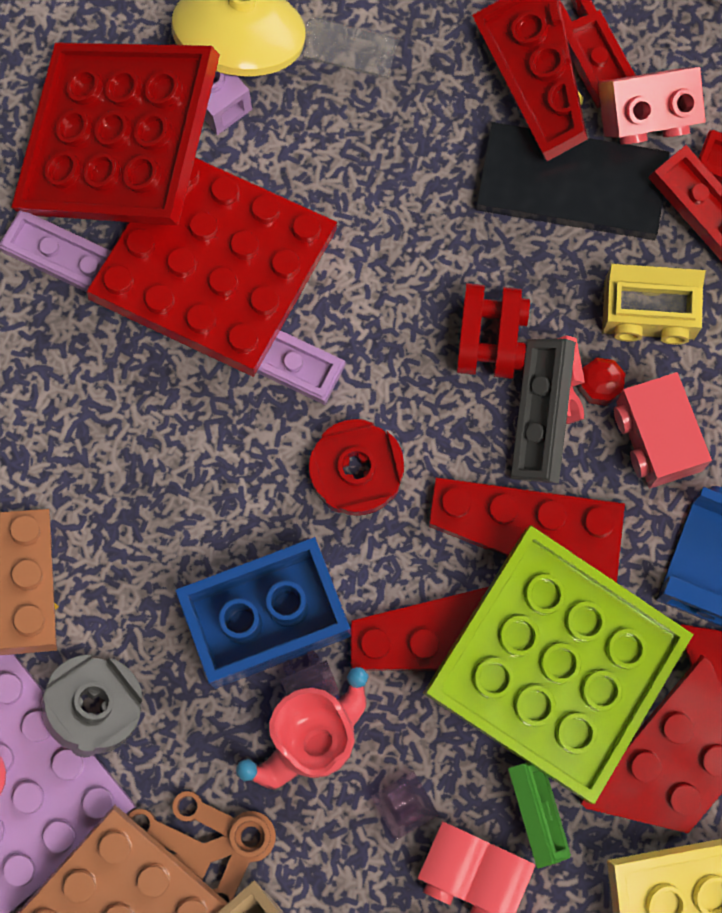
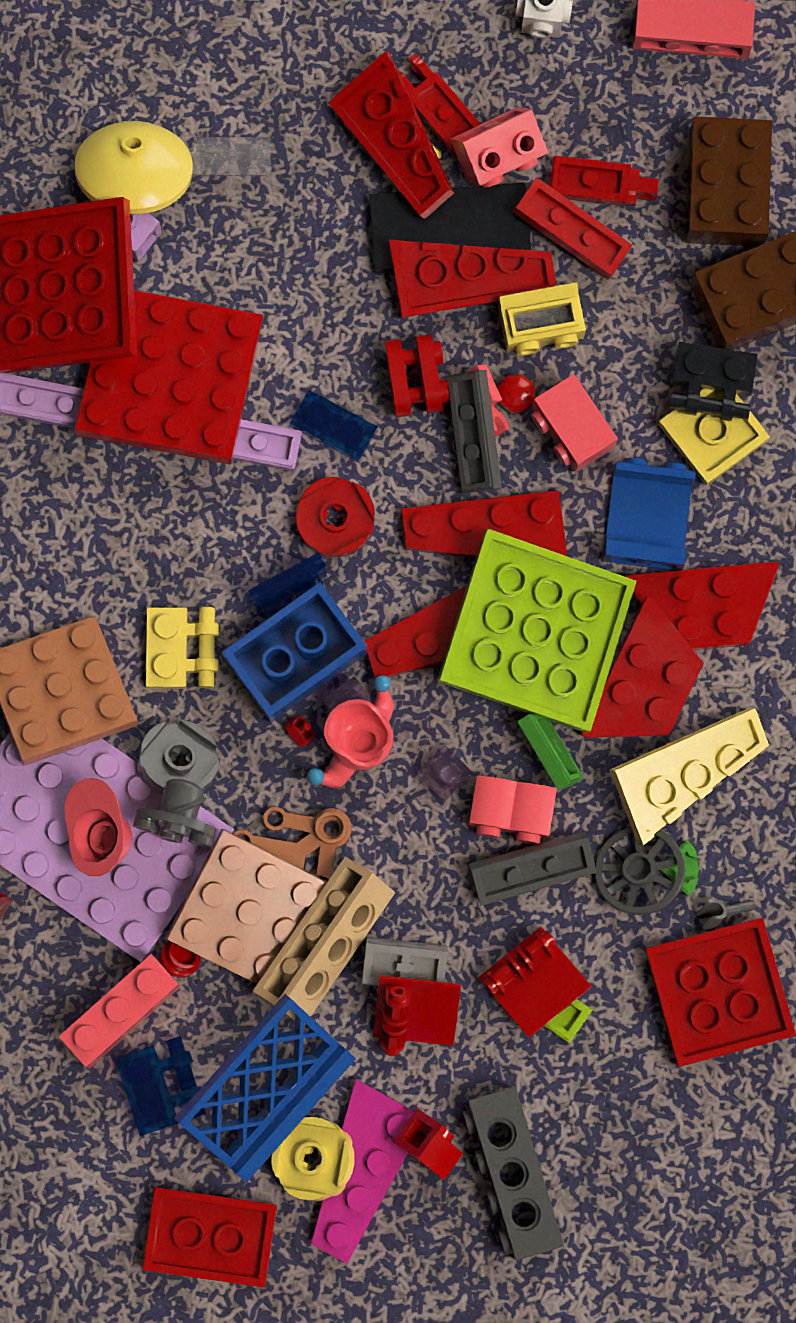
camera: 20 degrees left, 5 degrees up
(63, 773) = (177, 815): none -> dark grey plate
(122, 568) = (167, 648): none -> light yellow plate
(247, 706) = (300, 730): none -> red rock
(261, 534) = (301, 577): none -> clear blue plate
(383, 365) = (333, 426): none -> clear blue plate
(575, 234) = (459, 276): none -> red wing

